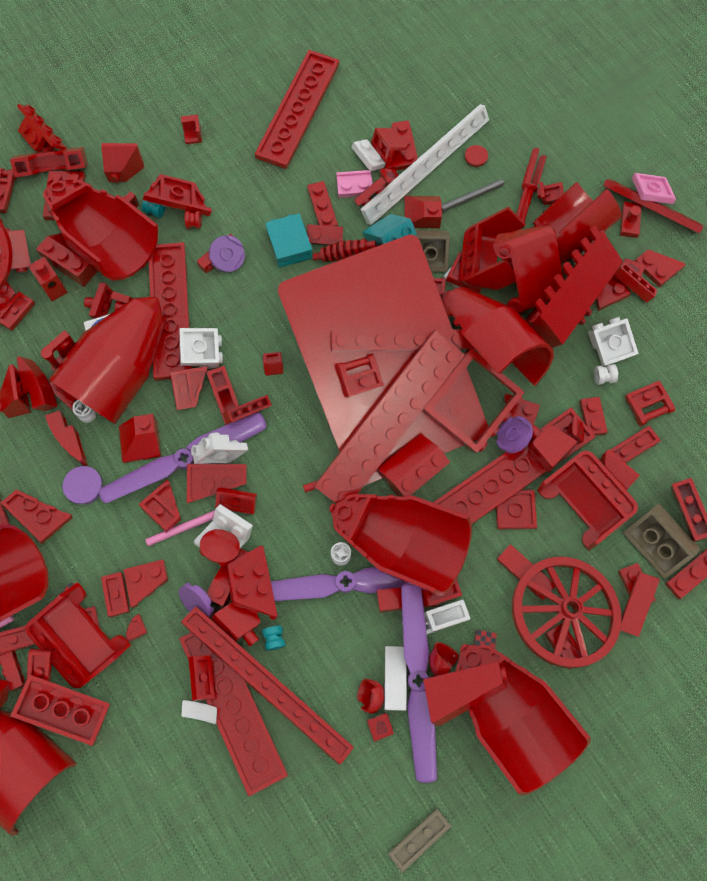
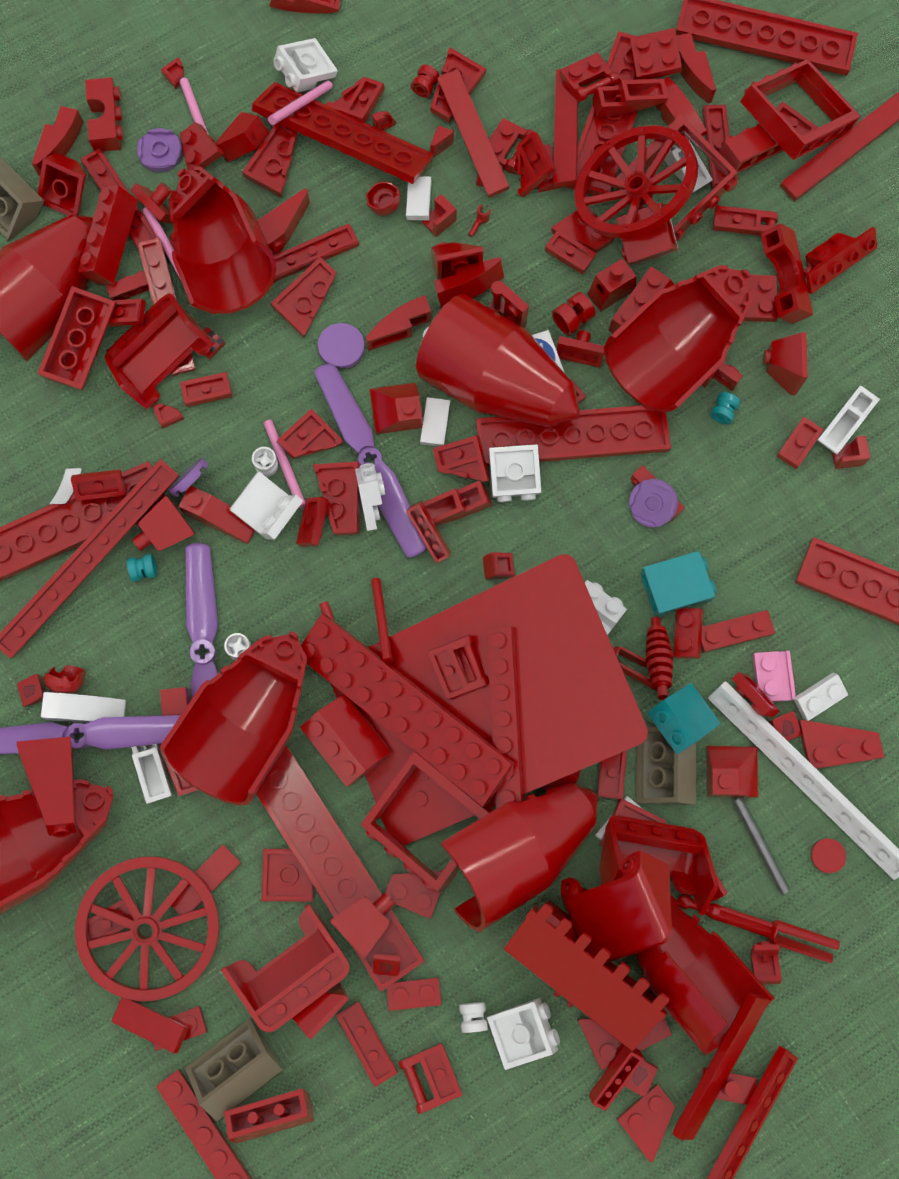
camera: 90 degrees right, 5 degrees up
(69, 307) = (576, 312): none -> red wheel
(120, 298) = (584, 376): red tile -> none
(144, 579) = (222, 421): red wing -> none
(161, 410) = (435, 422): none -> white tile
(166, 129) = (848, 419): none -> white slope
(177, 194) = (741, 436): red wing -> none
(180, 537) = (265, 456): none -> white wheel
(182, 160) = (800, 443): none -> red plate
(193, 219) = (706, 459): red wheel -> none
(219, 546) = (249, 501): red dish -> none
(251, 583) = (205, 539): red wing -> none
(319, 441) = (381, 620): none -> red bar
(386, 142) = (839, 723): red panel -> none
(442, 658) = (100, 765): red helmet -> none
(485, 638) = (120, 822): tile -> none
(514, 434) = (383, 876): medium lavender tile -> none
(628, 220) = (720, 1066): none -> red tile
(653, 188) = (777, 1126): bright pink tile -> none

